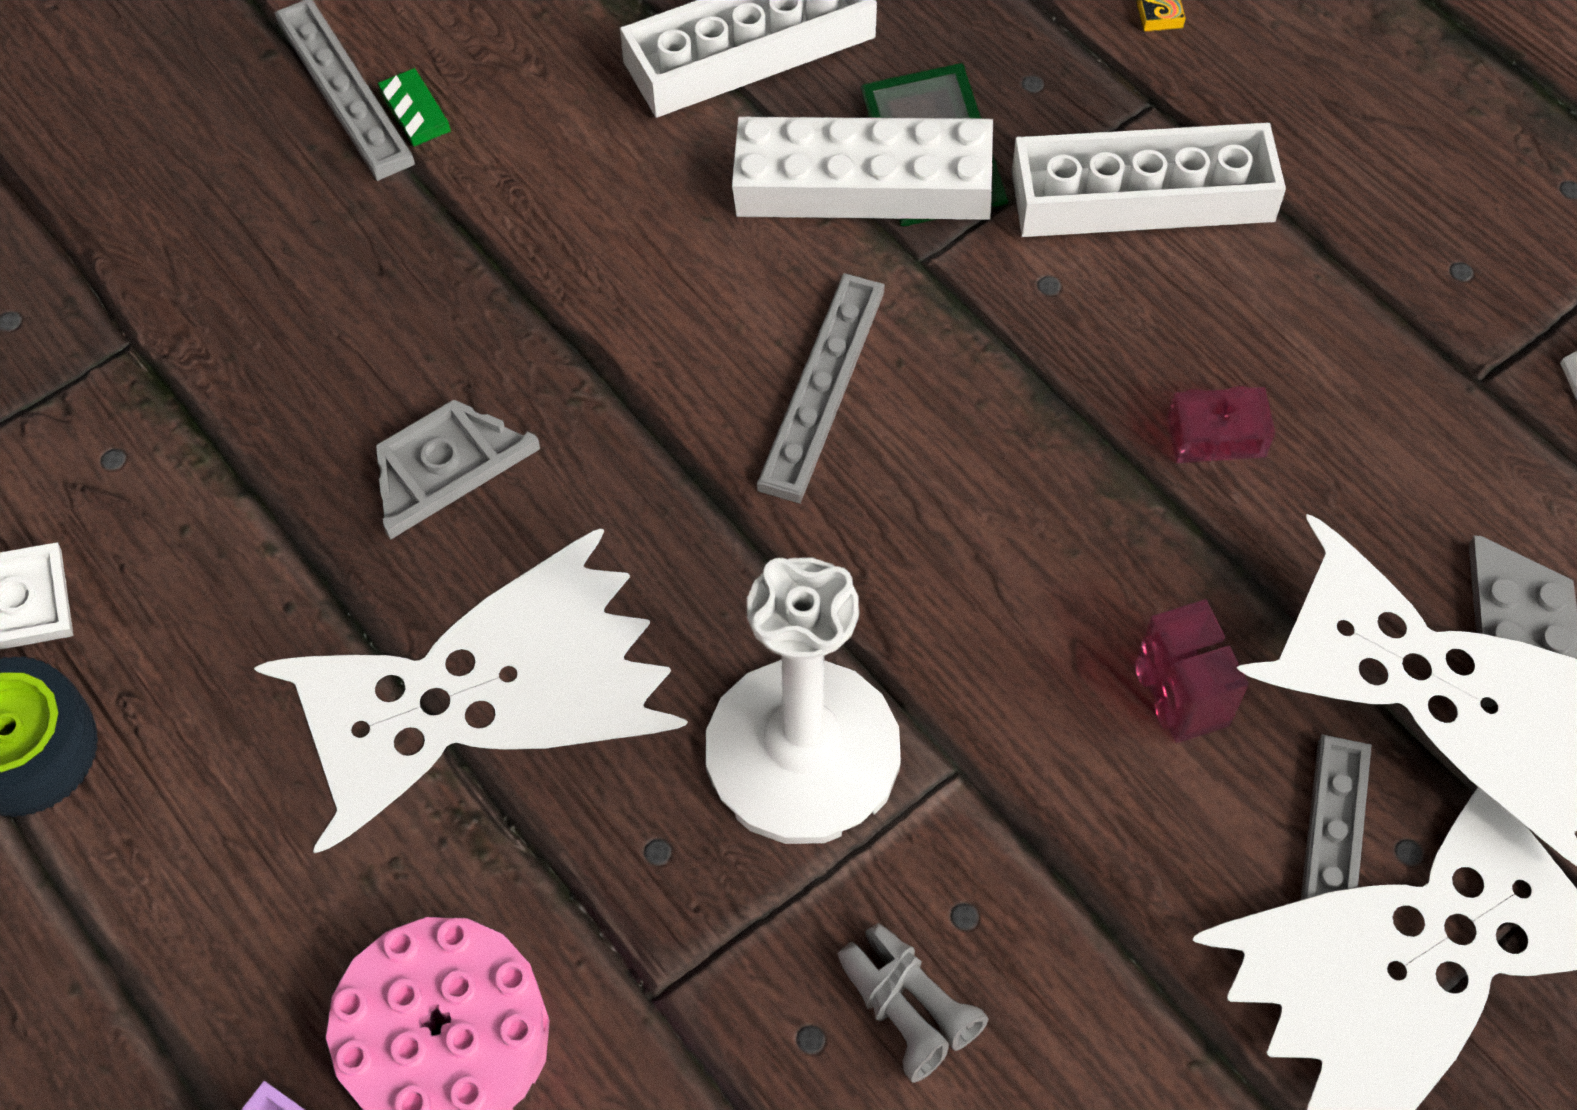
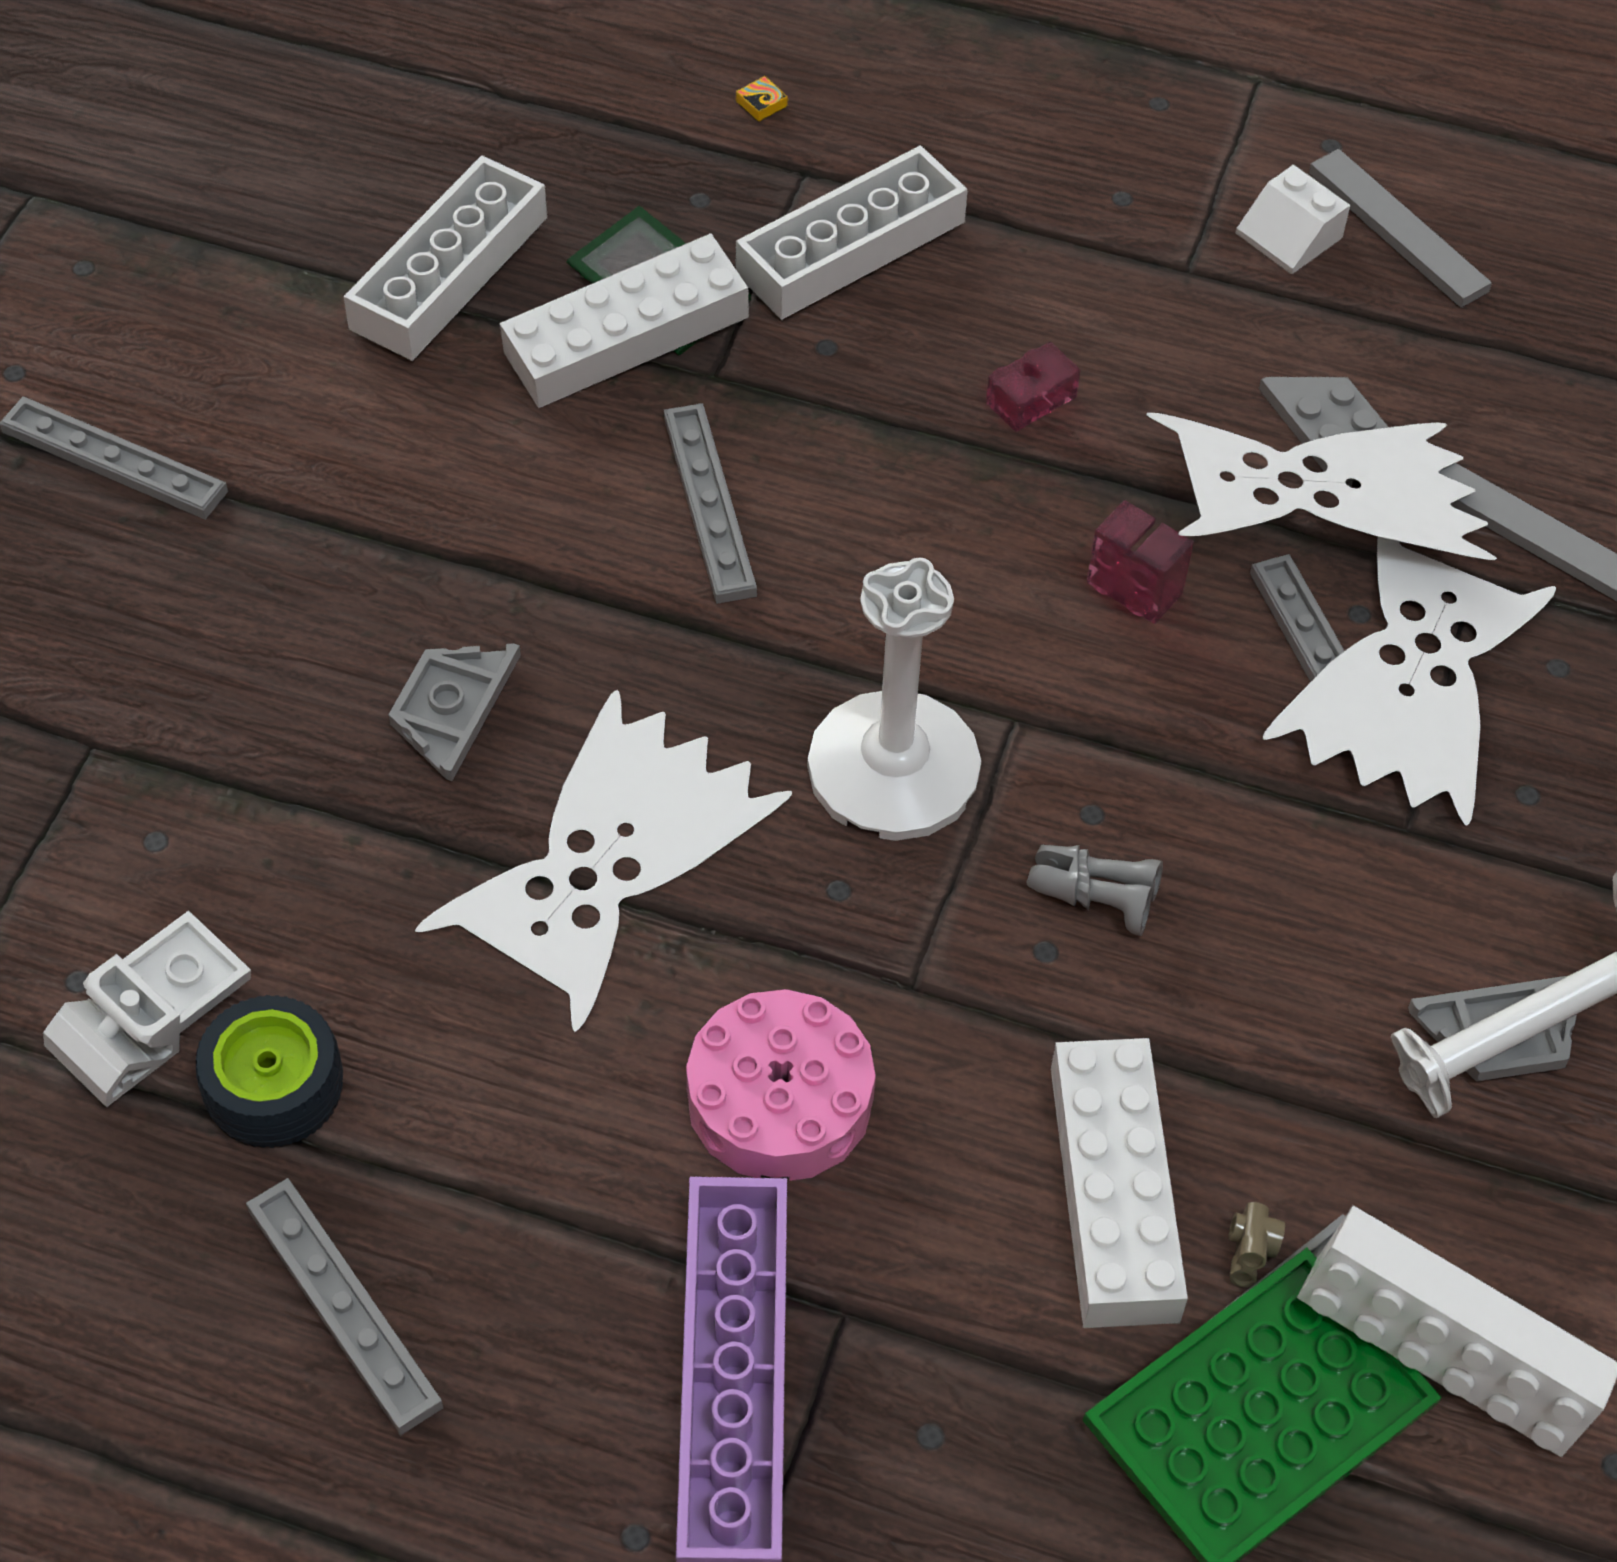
camera: 35 degrees left, 5 degrees down
(414, 107) = (192, 445): green tile -> none

